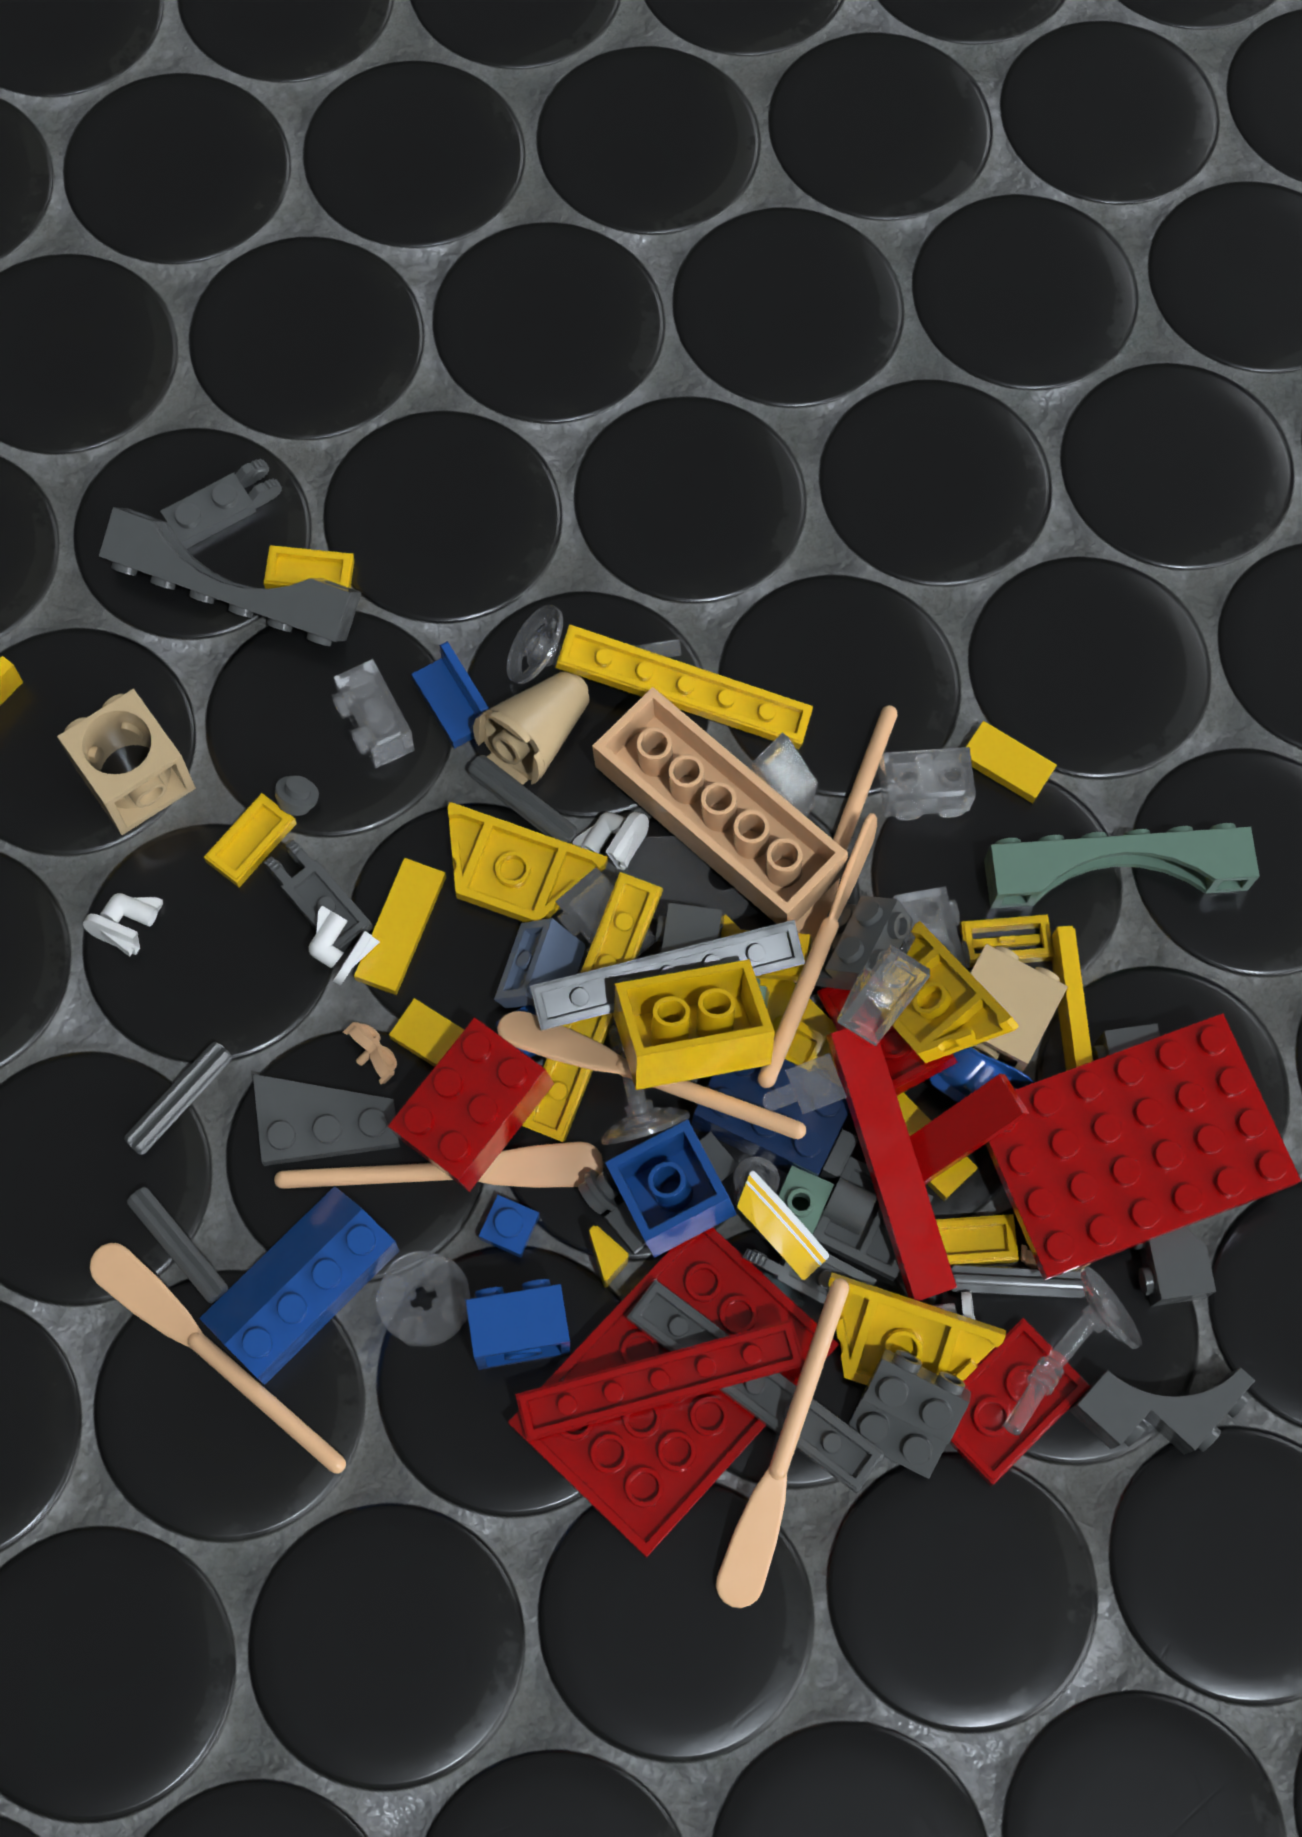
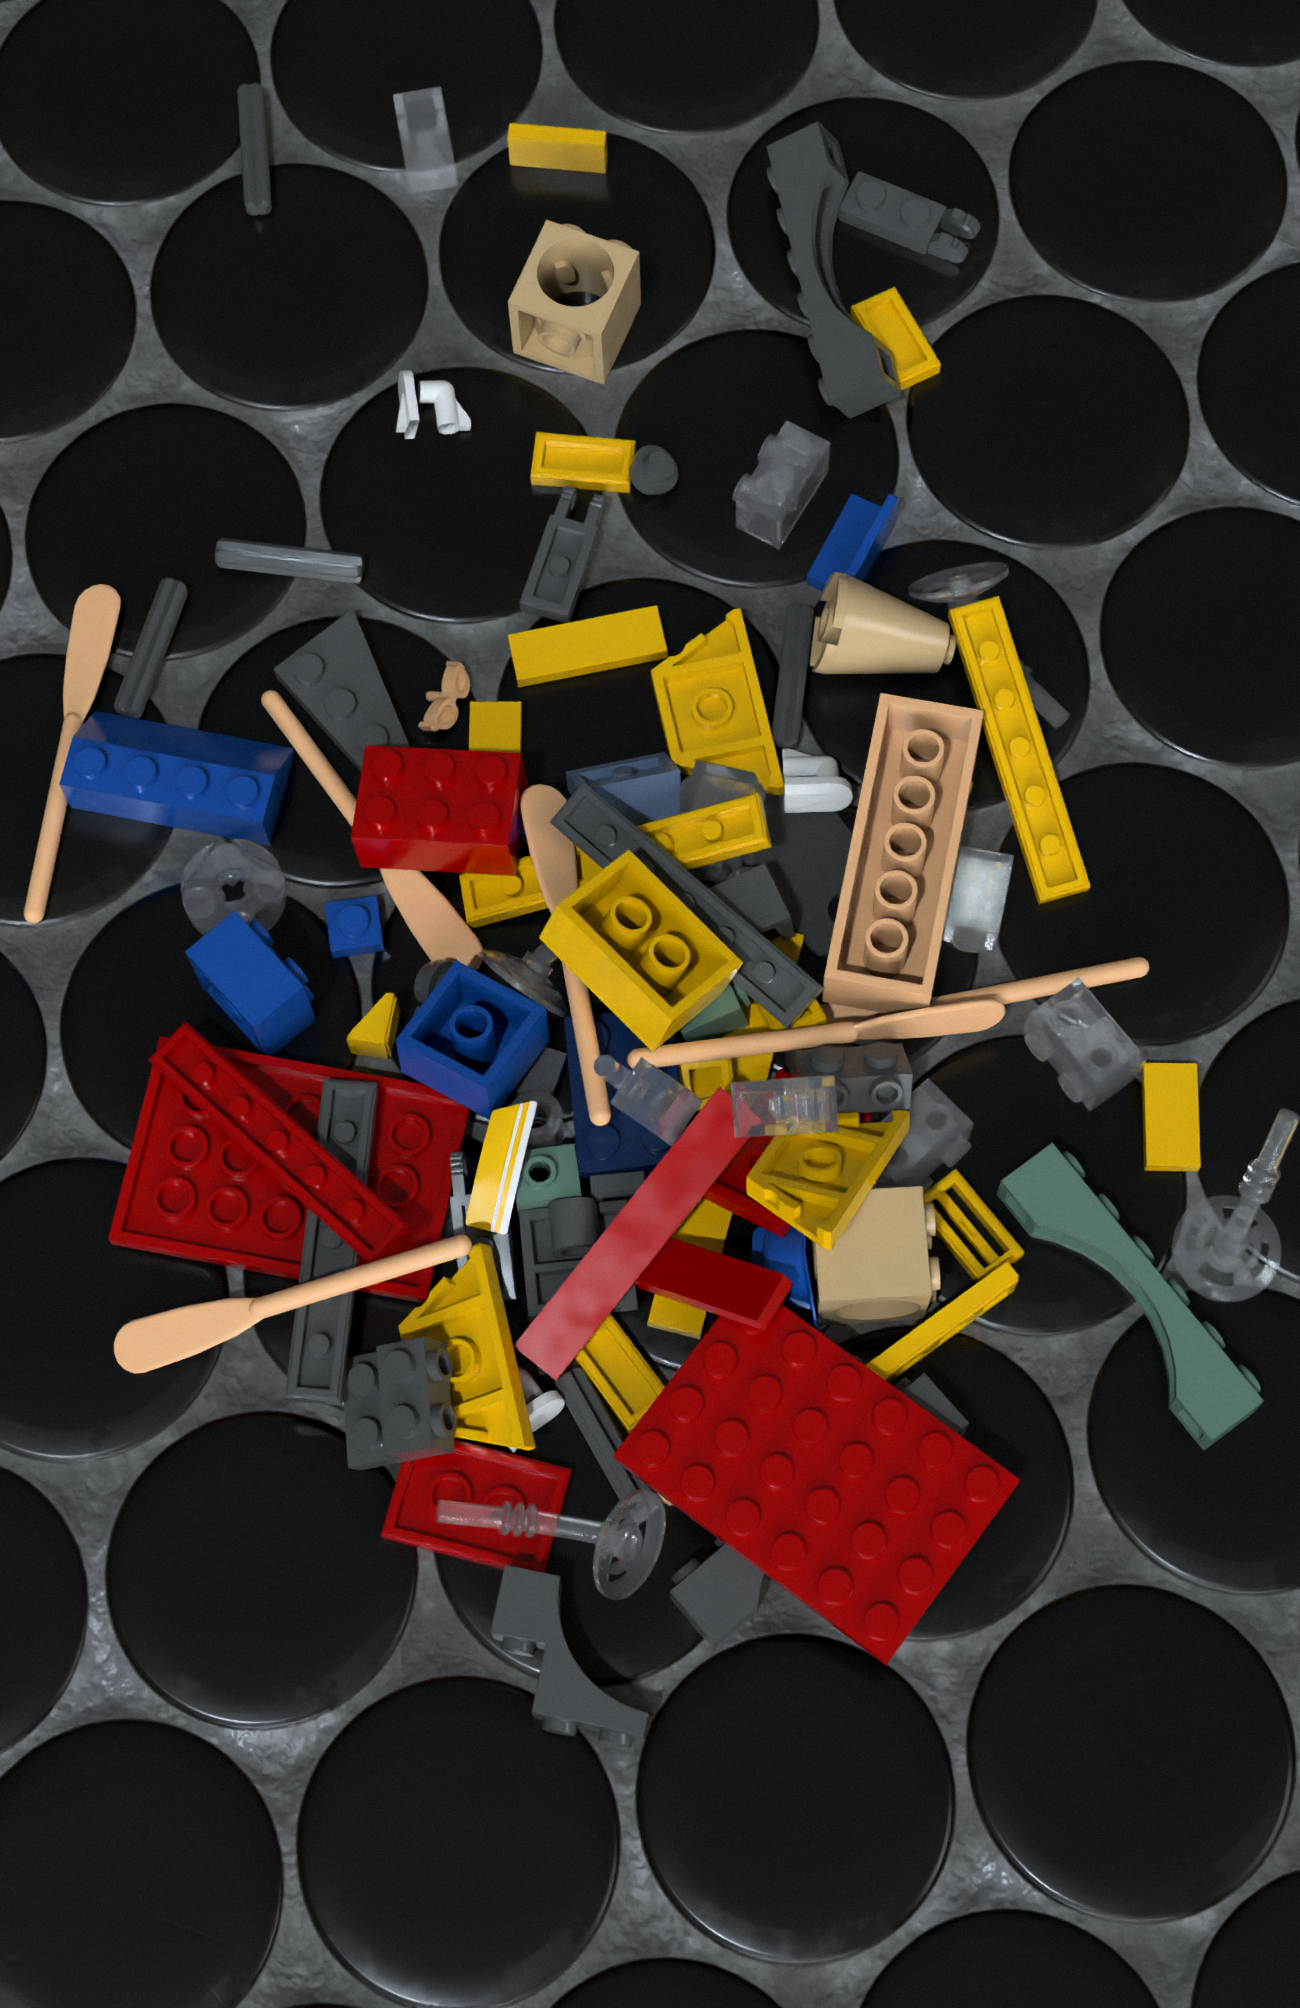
camera: 65 degrees right, 0 degrees up
(321, 947) = (529, 578): white piece -> none
(1121, 775) = (1235, 1232): none -> clear dish

